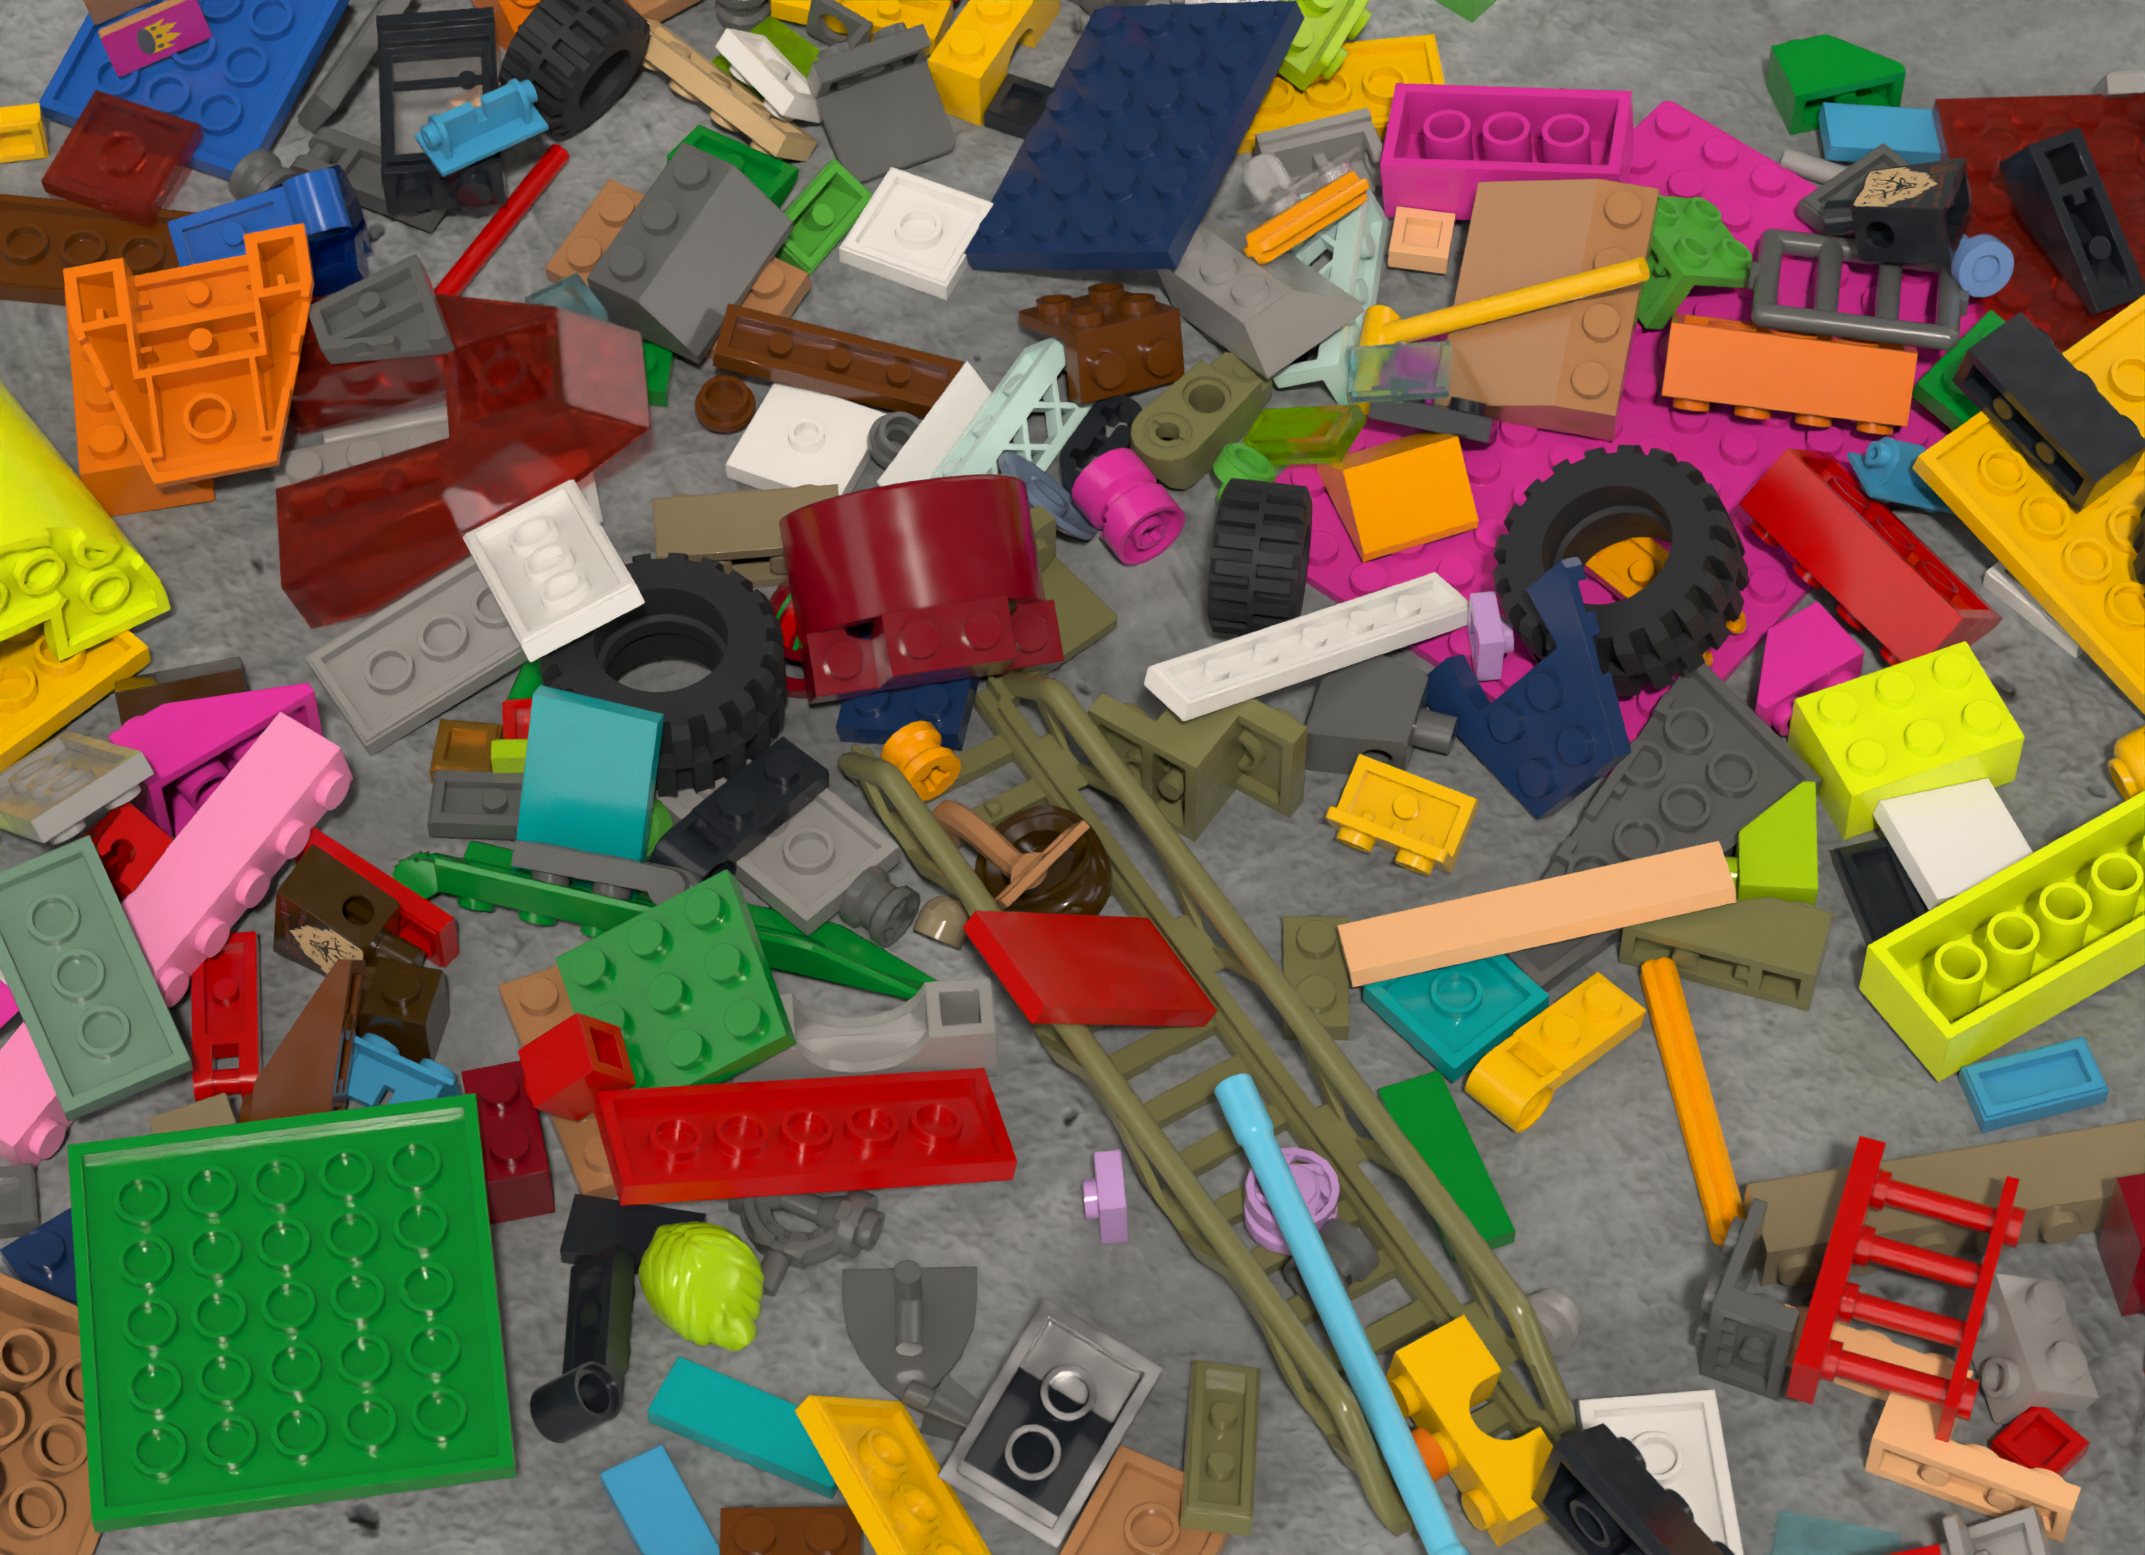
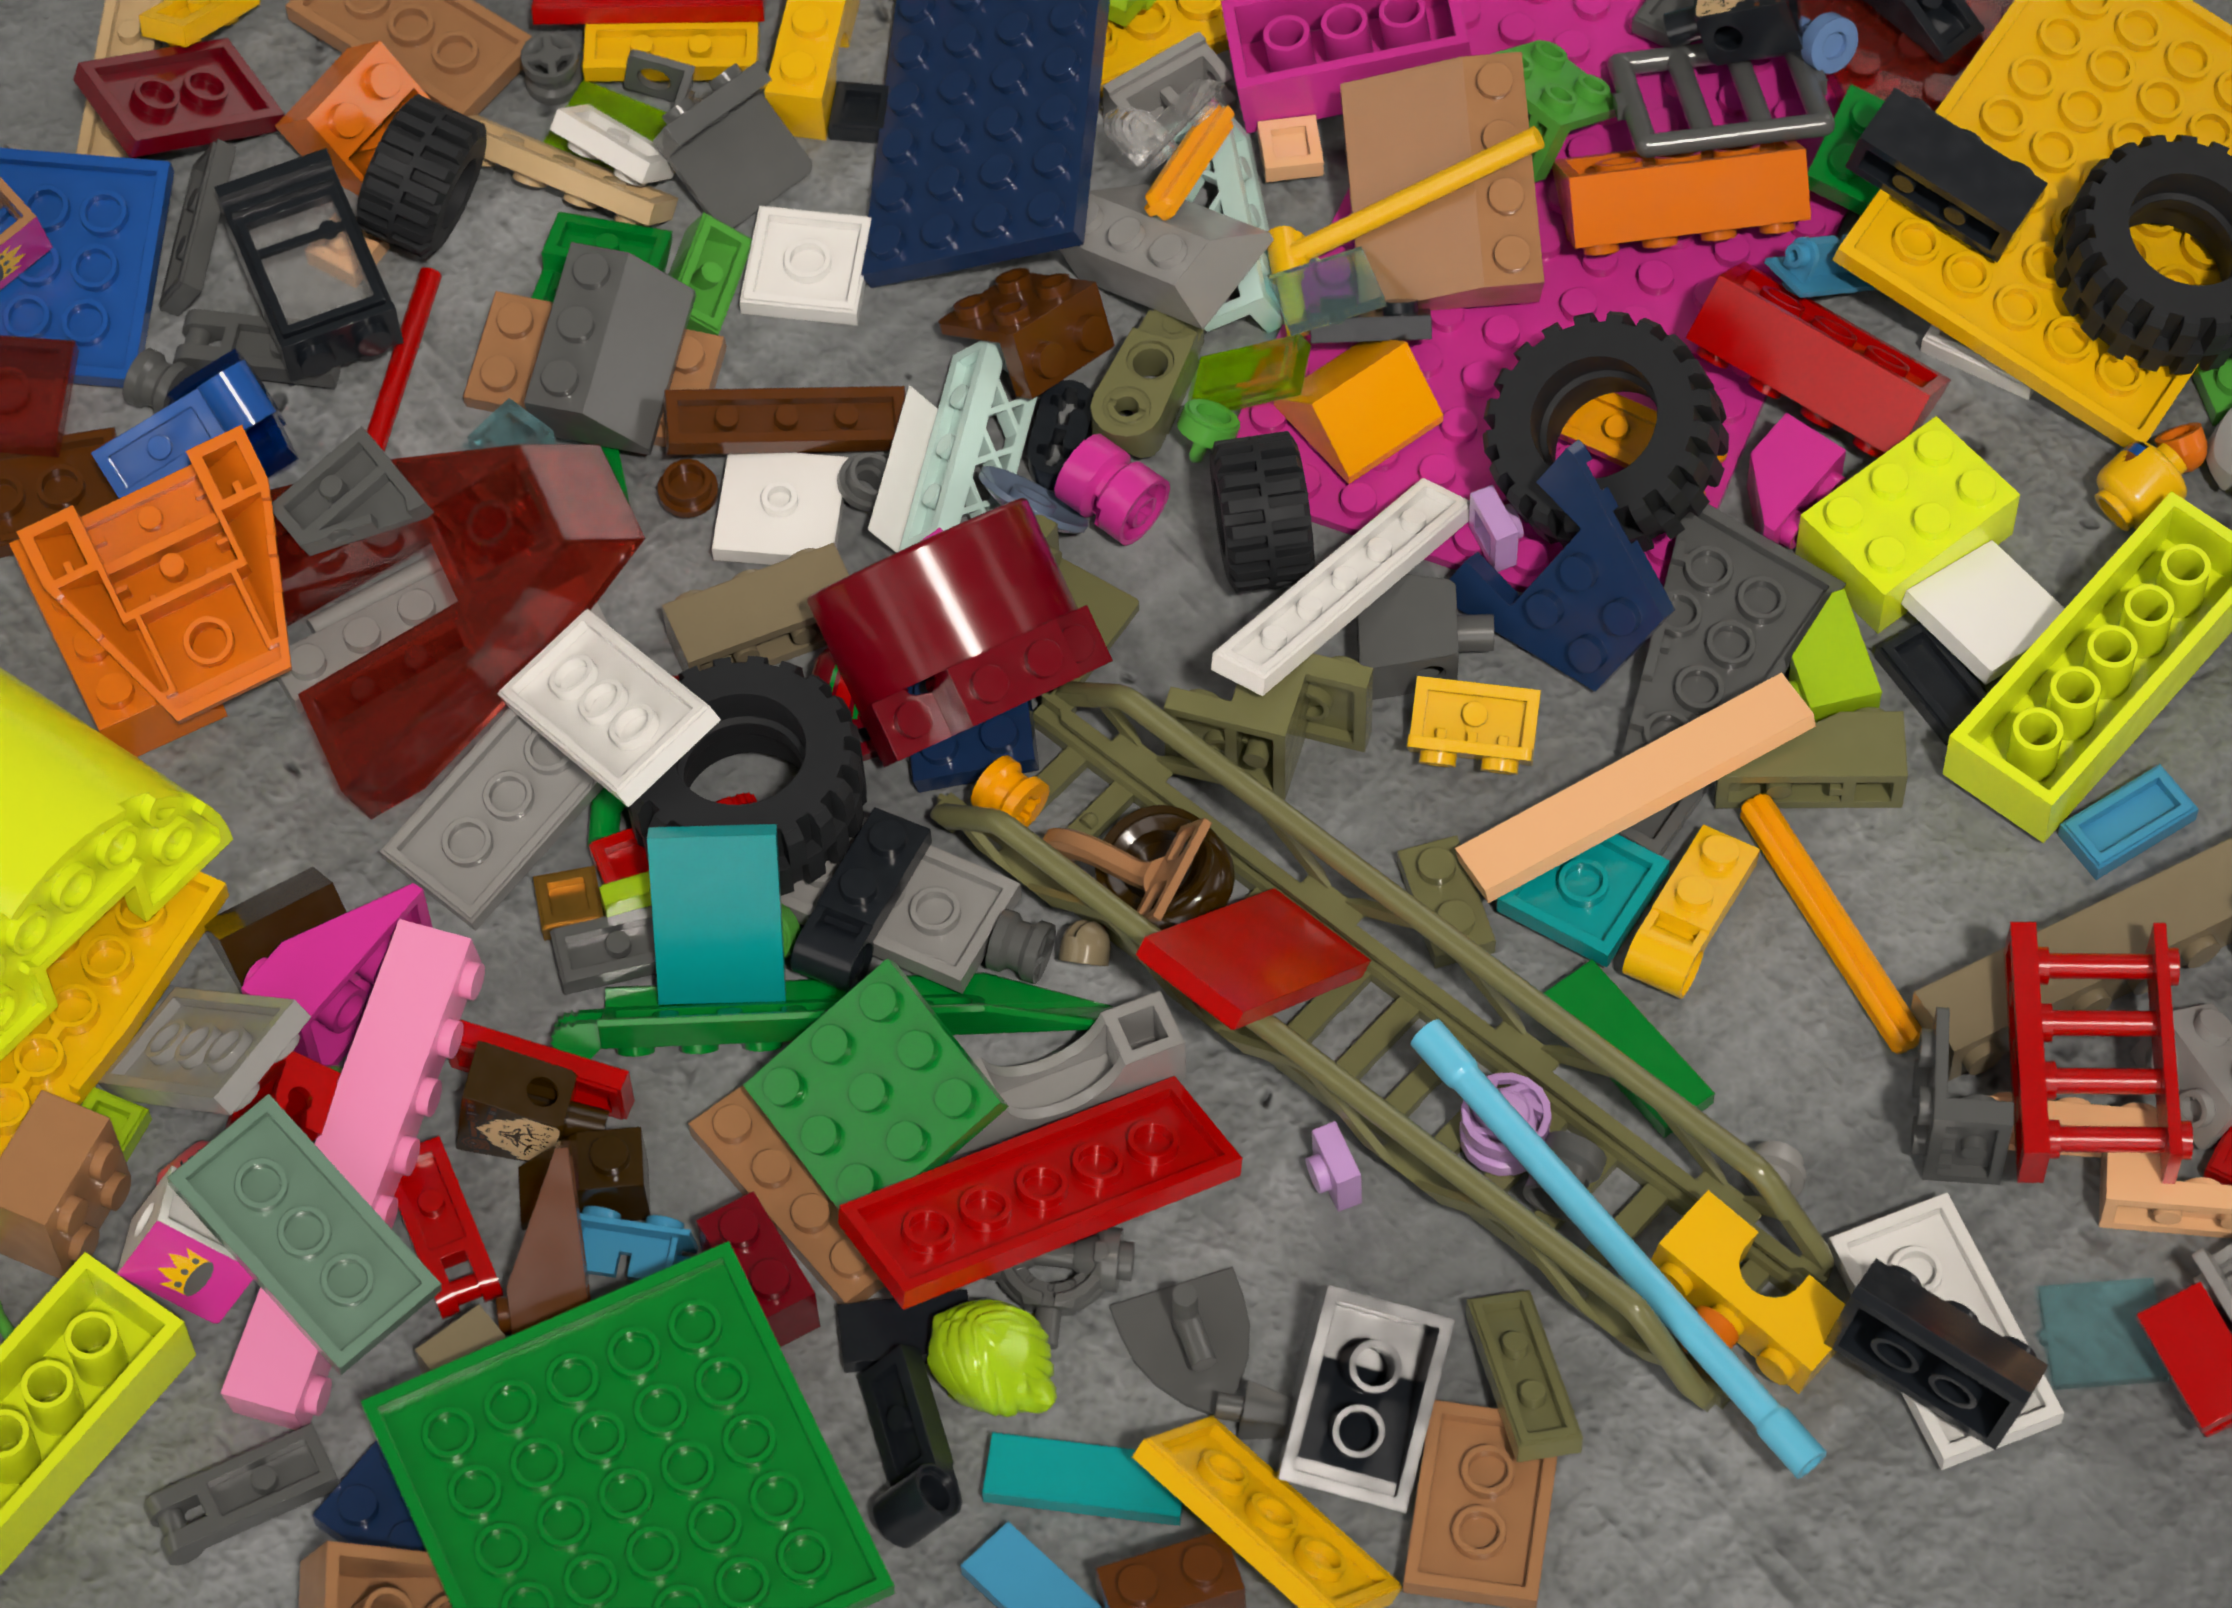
camera: 15 degrees left, 5 degrees up
(472, 133) = (368, 278): dark azure hinge -> none
(572, 1064) = (806, 1187): red brick -> none
(610, 874) = (764, 988): dark grey plate -> none

